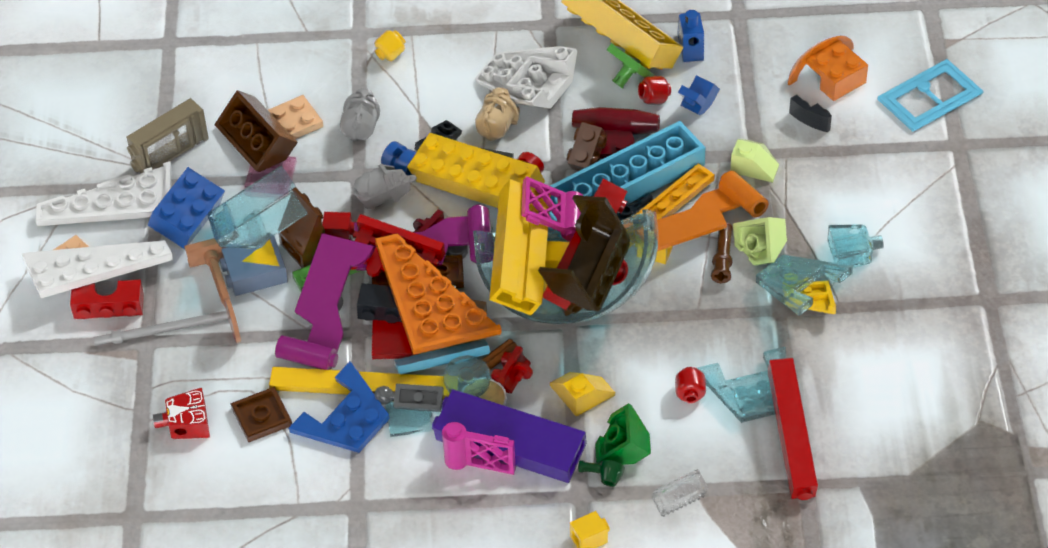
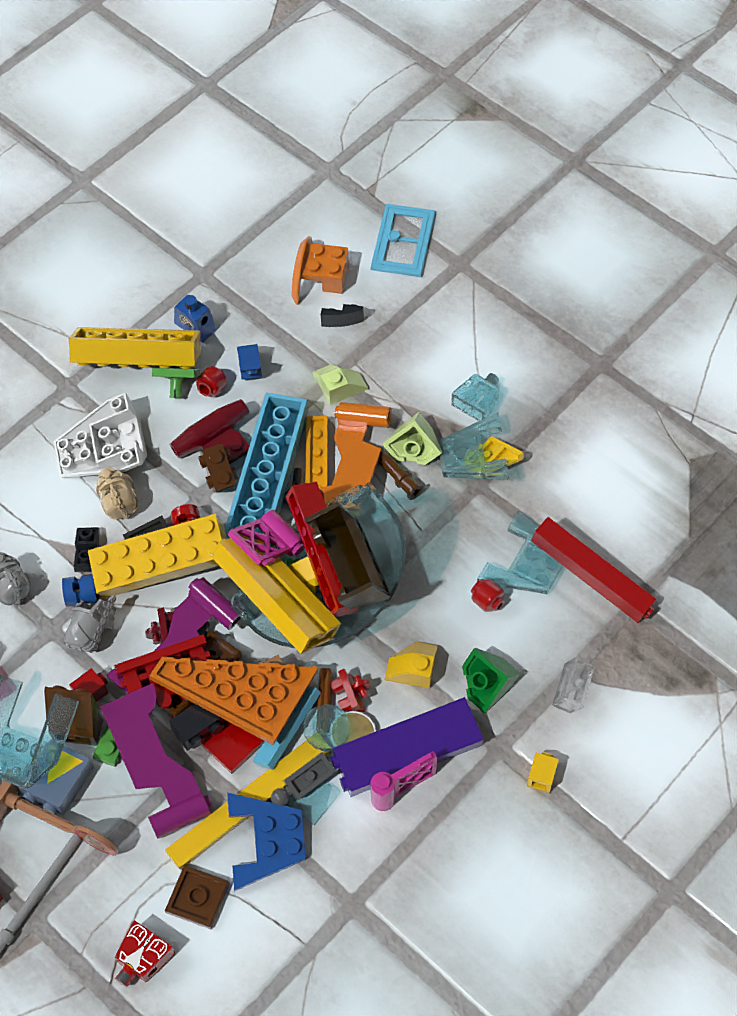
camera: 45 degrees left, 10 degrees up
(609, 471) = (505, 713): dark green bar -> none

